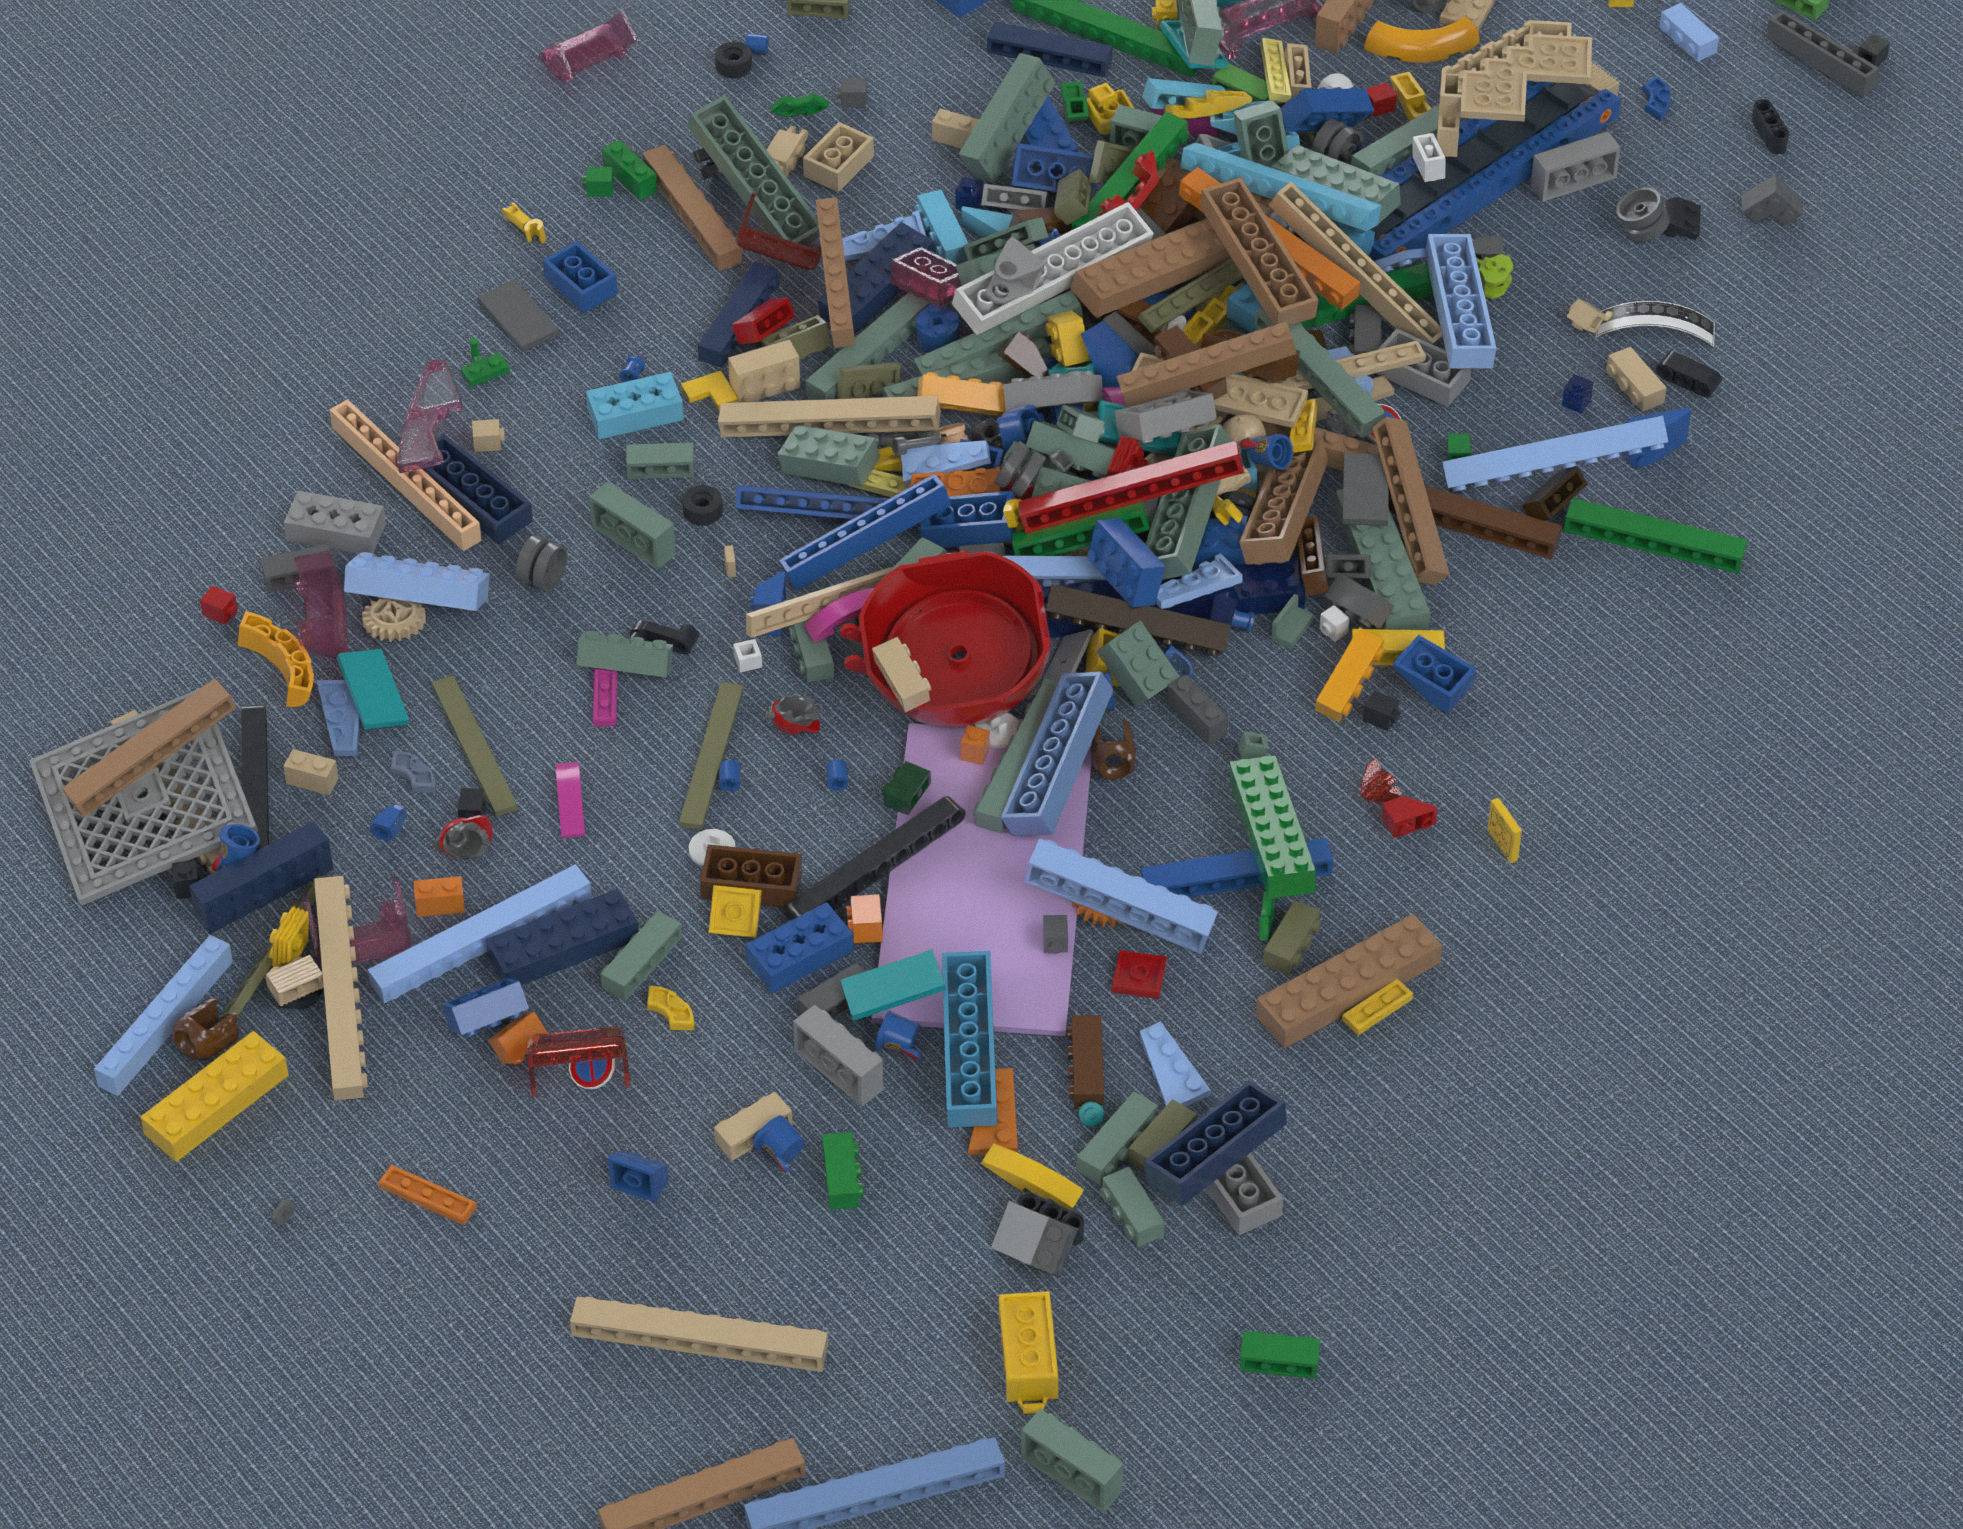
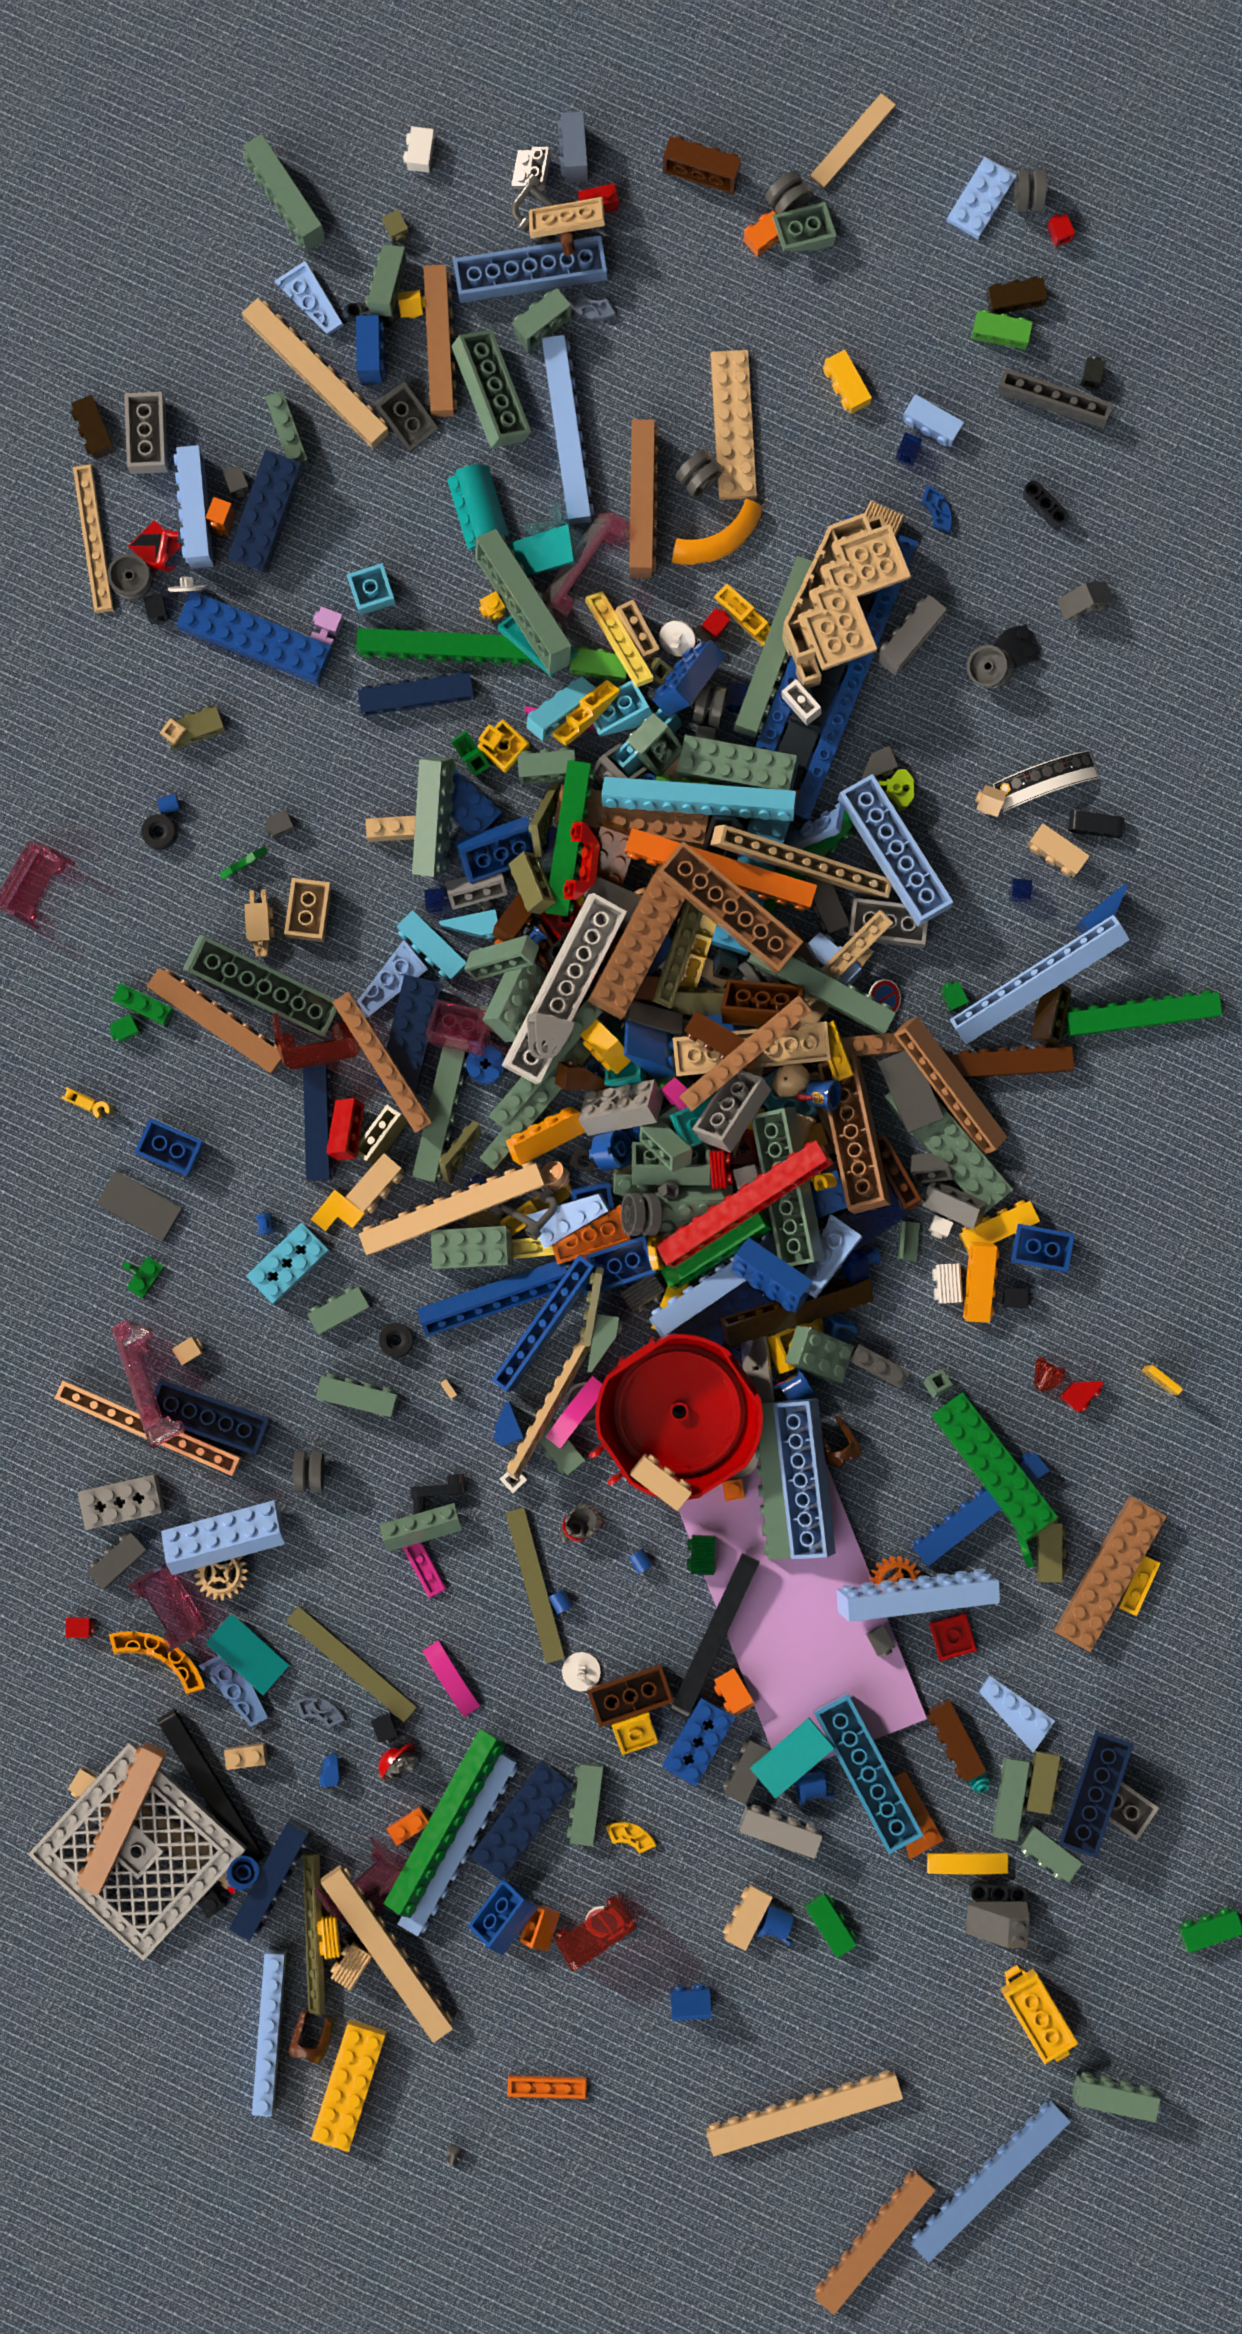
camera: 25 degrees left, 35 degrees up
(478, 898) = (444, 1823): none -> green brick
(927, 519) = (593, 1299): none -> olive wing
(1314, 671) = (948, 1283): none -> white brick
(1652, 43) = (908, 449): none -> clear blue brick

